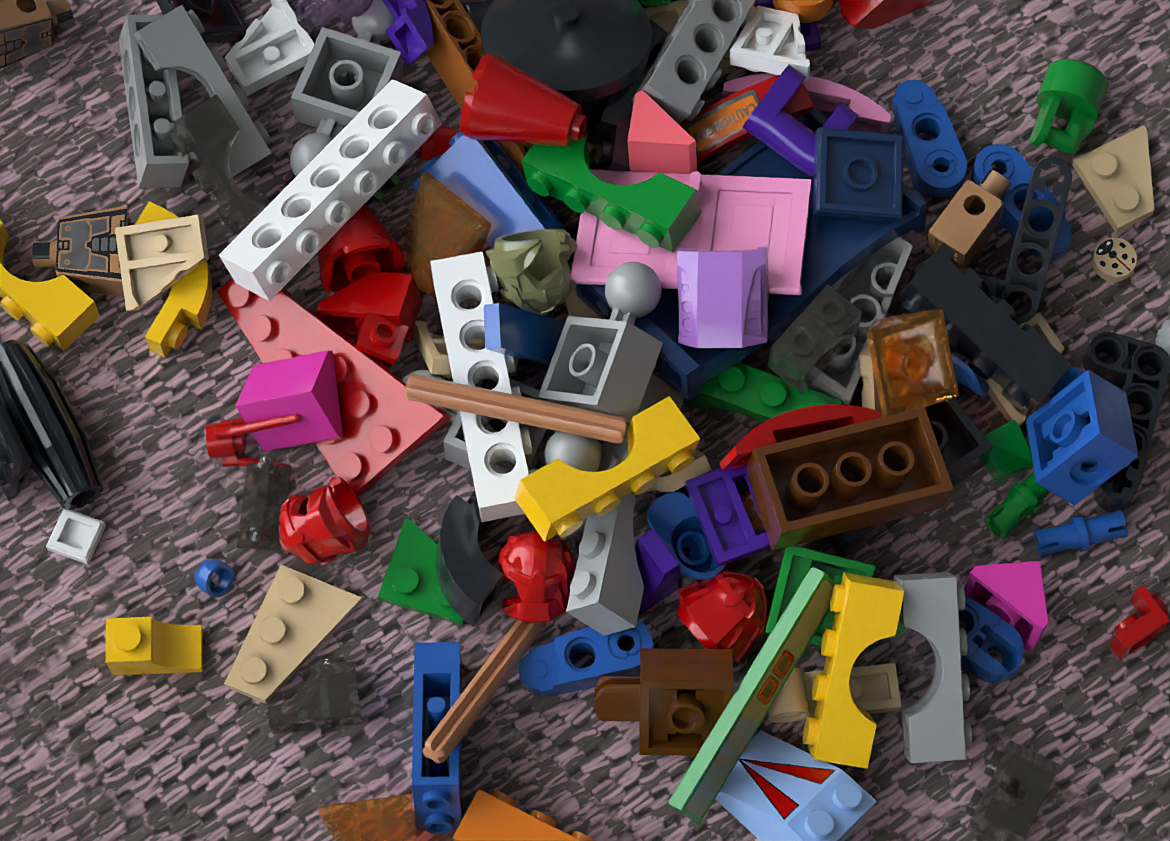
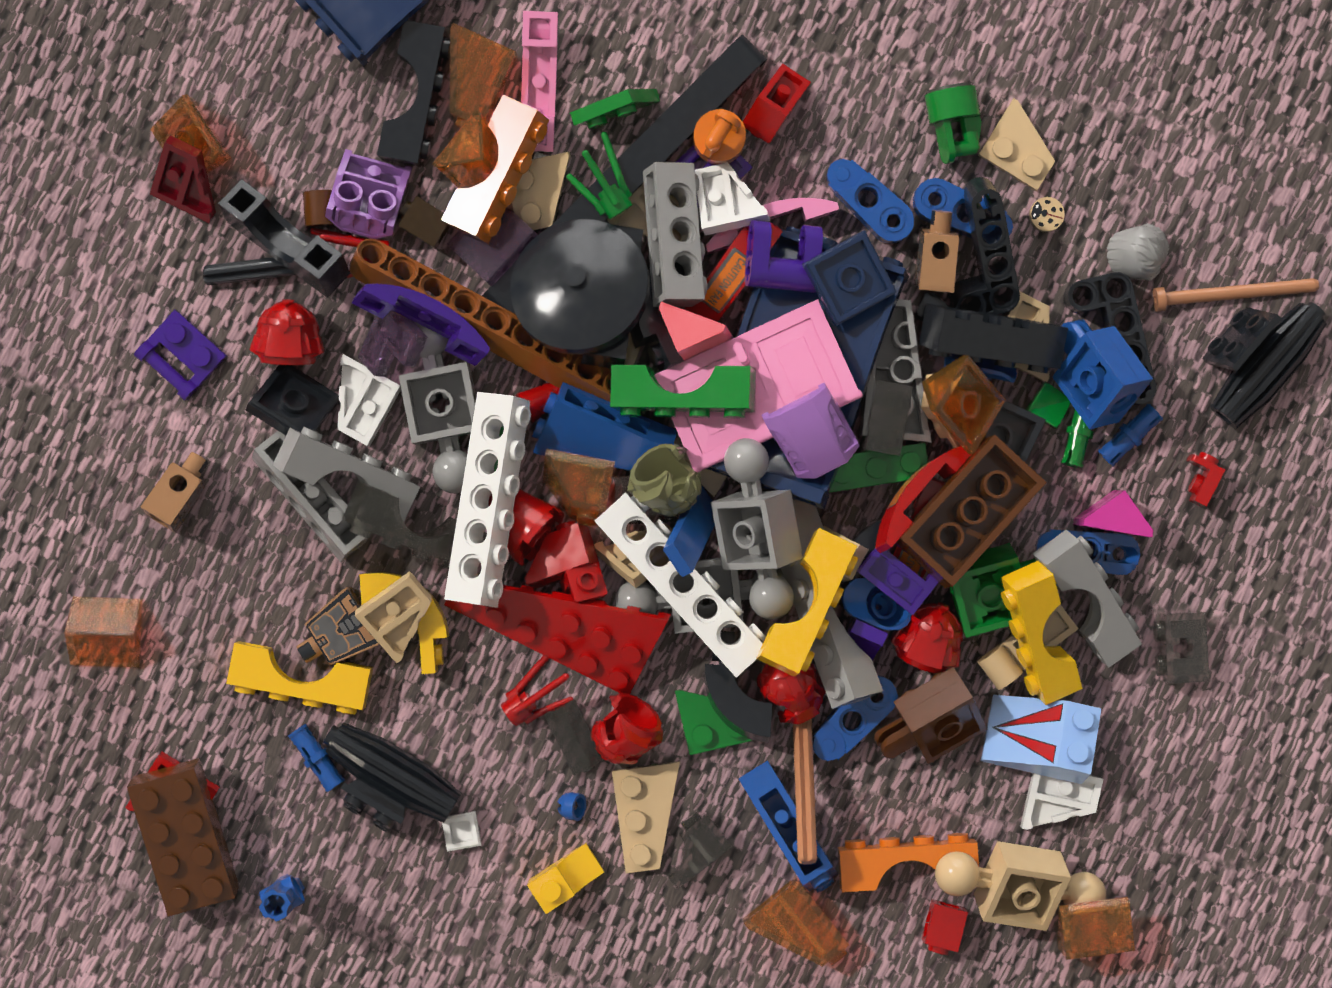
camera: 30 degrees left, 20 degrees up
(289, 387) = (548, 654): dark pink slope -> none
(515, 408) = (719, 597): nougat axle -> none
(518, 108) = (590, 375): red cone -> none
(754, 696) = (987, 691): tile -> none

